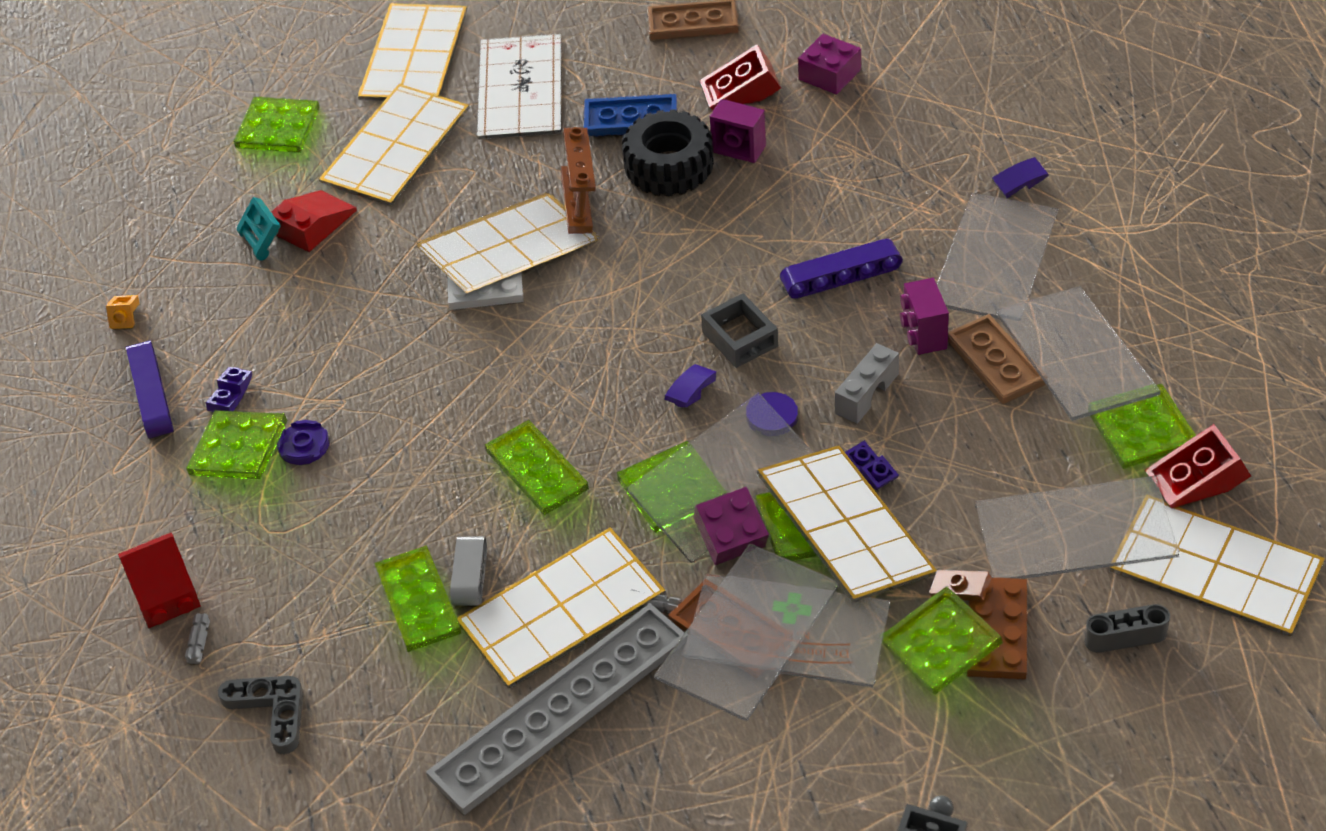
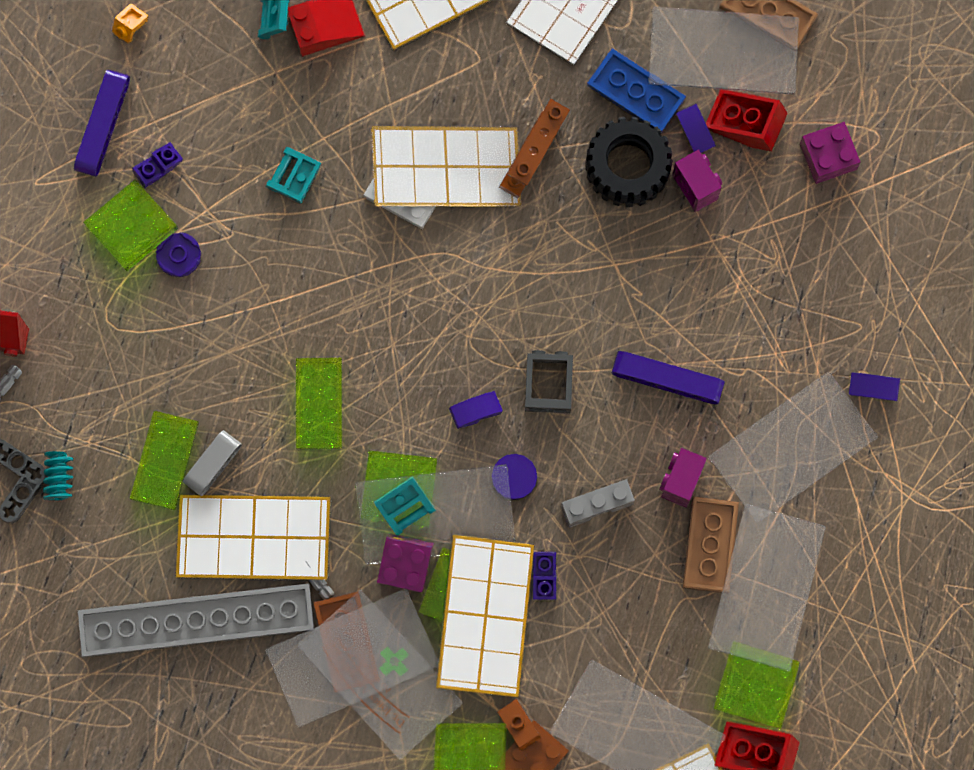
camera: 30 degrees right, 30 degrees up
(313, 671) = (57, 476): none -> teal piece
(378, 325) = (300, 177): none -> teal plate
(678, 53) = (723, 50): none -> clear piece
(683, 471) = (400, 500): none -> teal plate
(698, 105) = (695, 128): none -> dark purple slope

